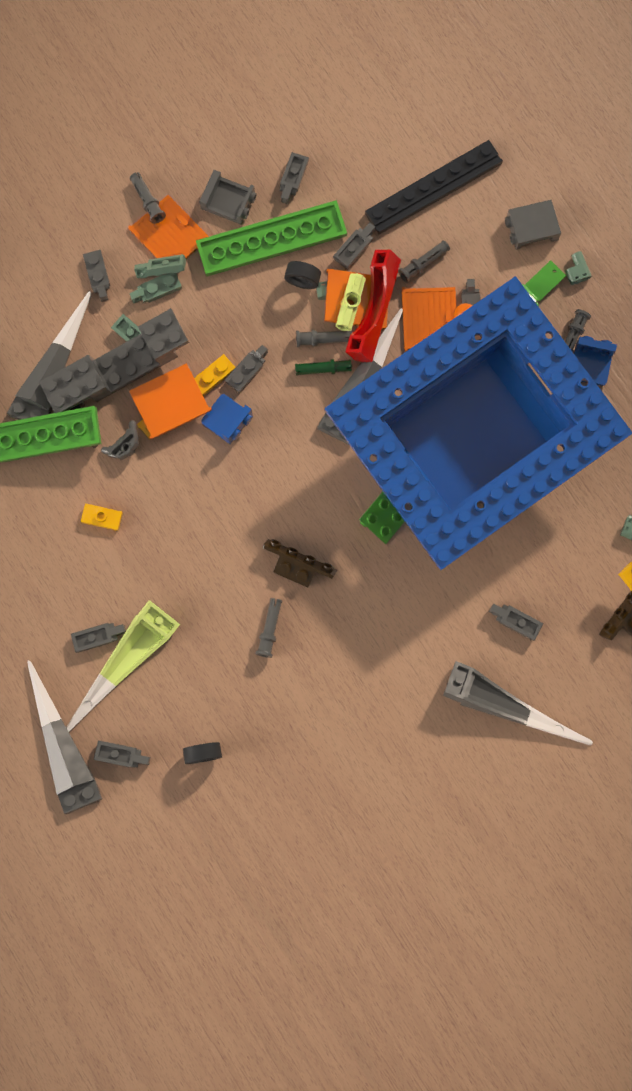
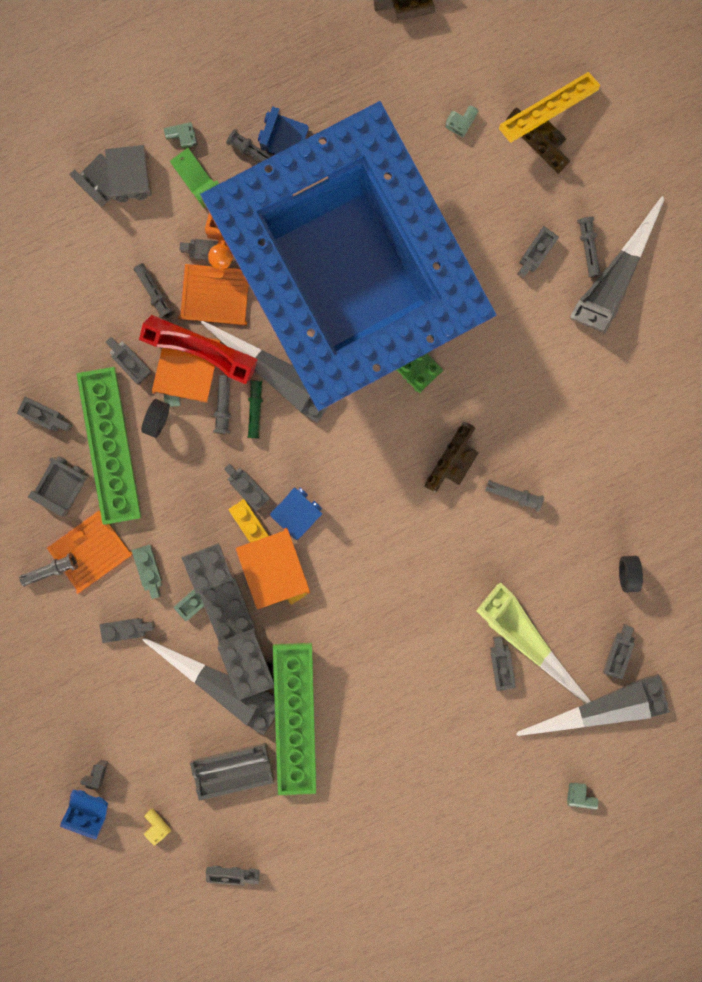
camera: 85 degrees left, 10 degrees up
(101, 517) = (382, 649): yellow plate -> none
(125, 445) = (313, 619): dark grey piece -> none
(161, 266) = (126, 563): sand green hinge -> none
(353, 292) = (180, 368): yellowish green piece -> none
(433, 187) = (72, 270): black plate -> none
(519, 194) = (94, 180): none -> dark grey bracket
(538, 670) = (589, 235): none -> dark grey pin

